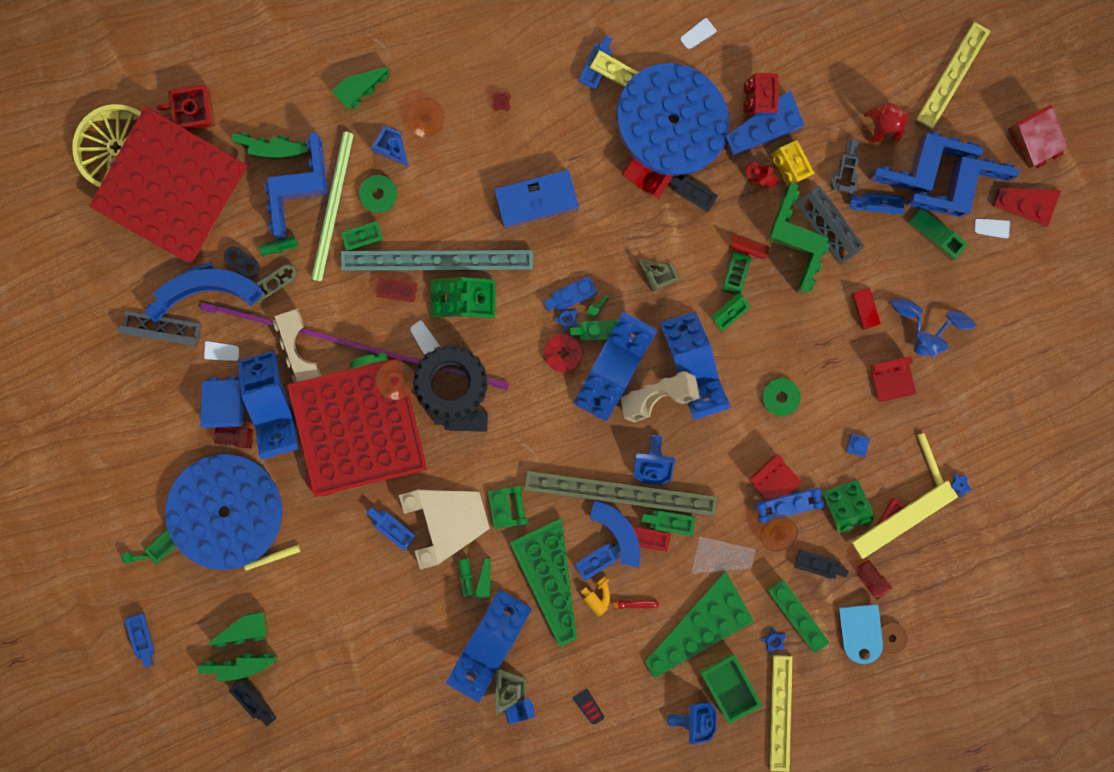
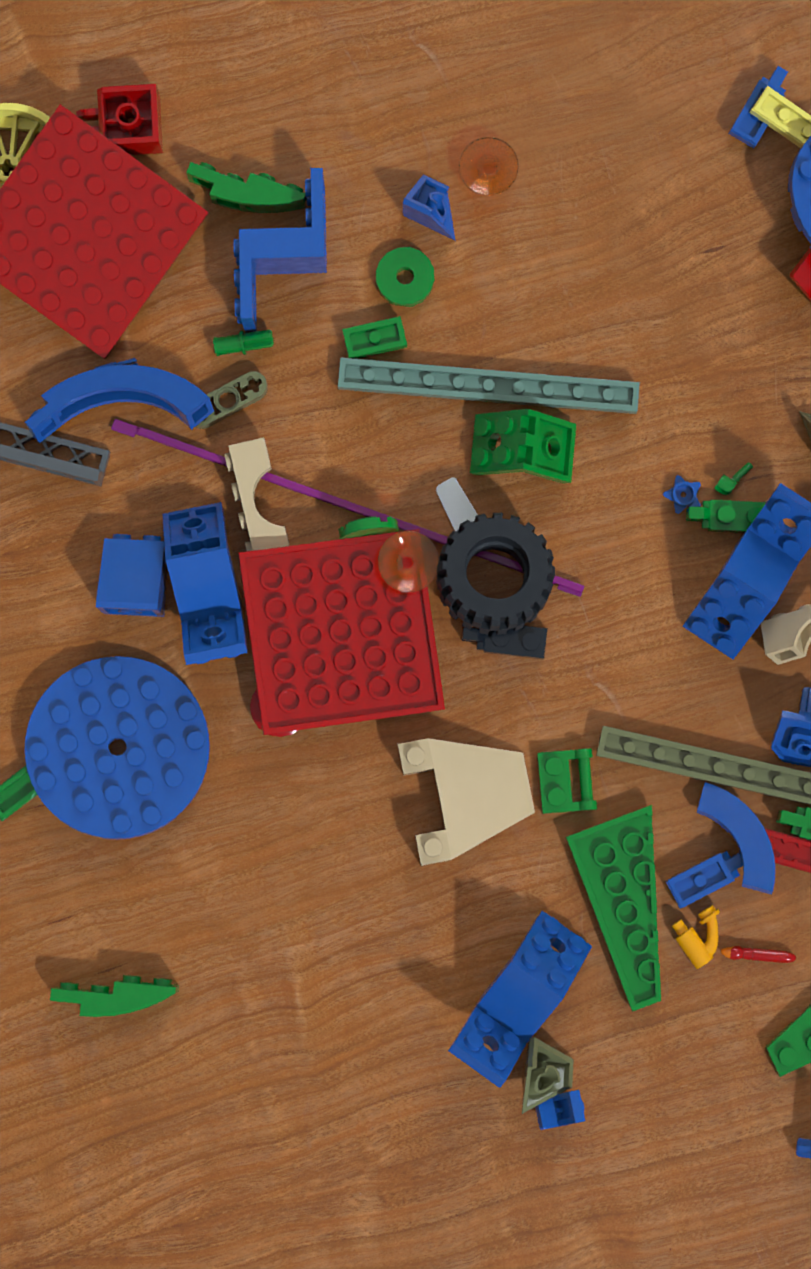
camera: 10 degrees right, 5 degrees down
(221, 351) = (137, 497): white sticker -> none
(238, 437) = (153, 632): clear red piece -> none
(242, 261) = (184, 361): black plate -> none
(248, 626) = (134, 934): green slope -> none
(252, 702) = (131, 1055): black hinge -> none
(273, 557) = (187, 827): light yellow bar -> none
(332, 206) = (332, 290): yellowish green axle -> none
(356, 87) = (388, 110): green slope -> none
(391, 528) = (380, 797): blue hinge -> none
(397, 290) = (421, 426): clear red plate -> none
(465, 577) = (491, 886): green axle -> none
(483, 587) = (519, 899): green slope -> none
(501, 96) = (612, 146): clear red plate -> none
(536, 199) = (652, 304): blue brick -> none
(556, 344) = (658, 556): red plate -> none
(571, 294) = (694, 457): blue hinge -> none
(589, 706) = (670, 1114): black sticker -> none

